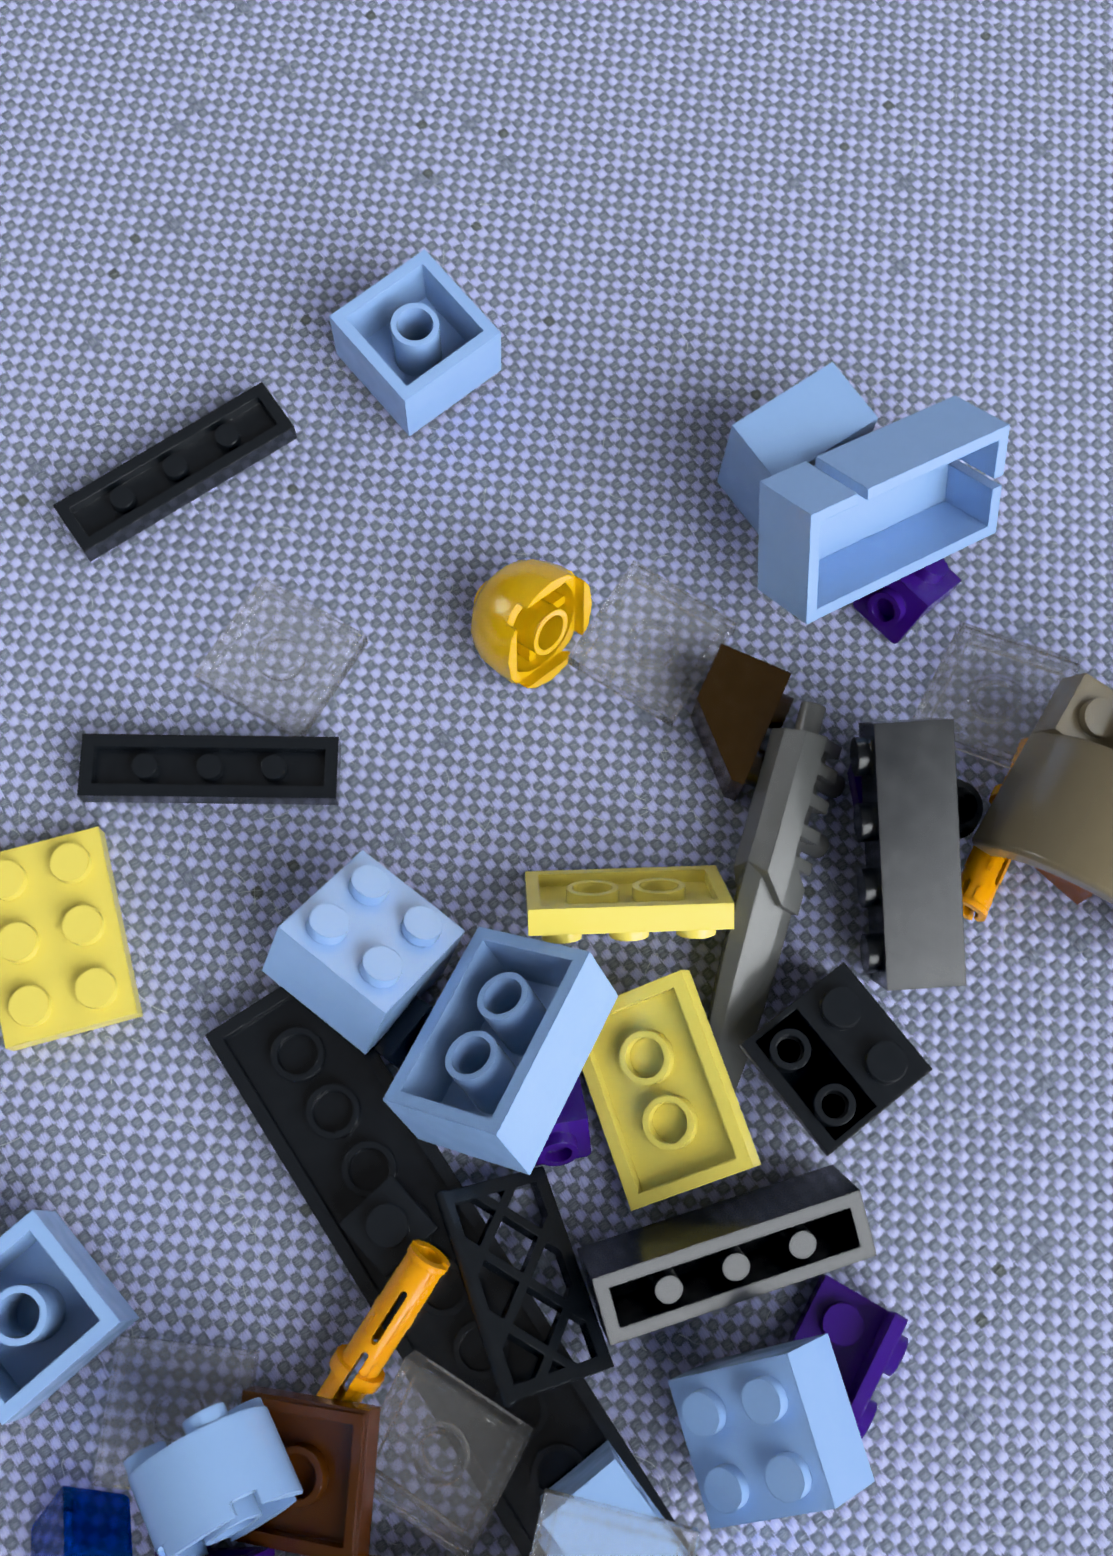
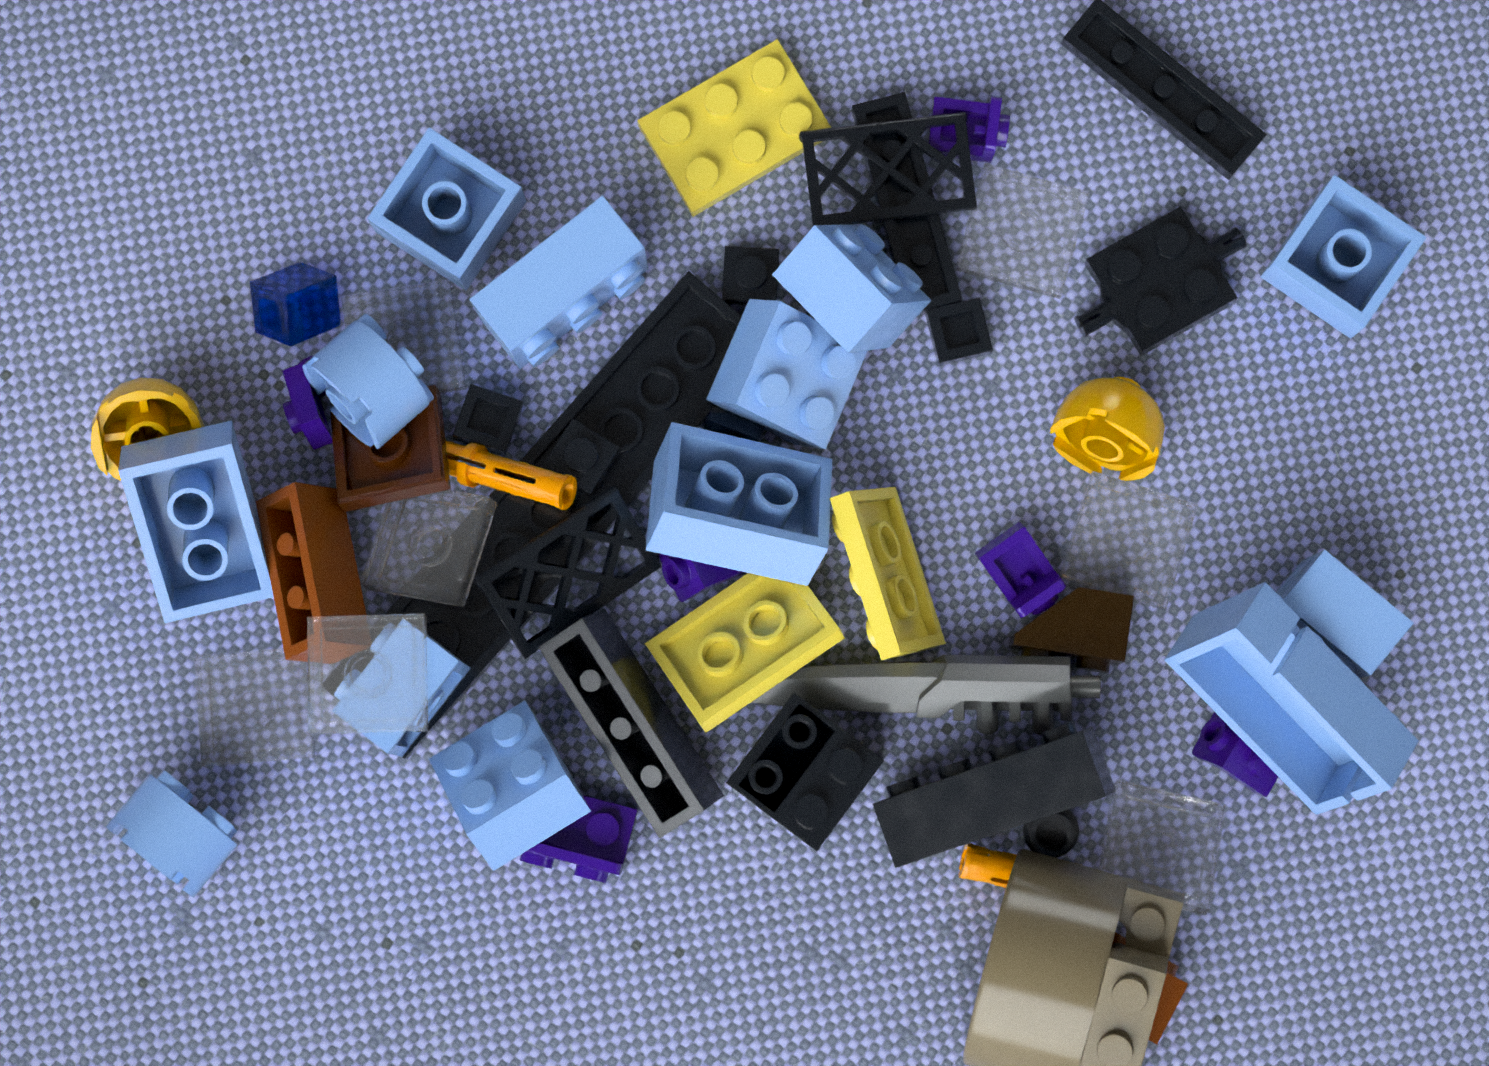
camera: 80 degrees right, 10 degrees up
(148, 678) = (984, 125): none -> dark purple bracket
(169, 1192) = (562, 284): none -> light blue brick
(202, 812) = (911, 129): none -> black window
(232, 967) = (749, 274): none -> black plate
(284, 846) = (852, 286): none -> light blue brick
(306, 1333) = (487, 419): none -> black plate
(372, 752) = (958, 331): none -> black plate
(382, 533) = (1160, 281): none -> black plate
(660, 758) = (1021, 571): none -> dark purple bracket

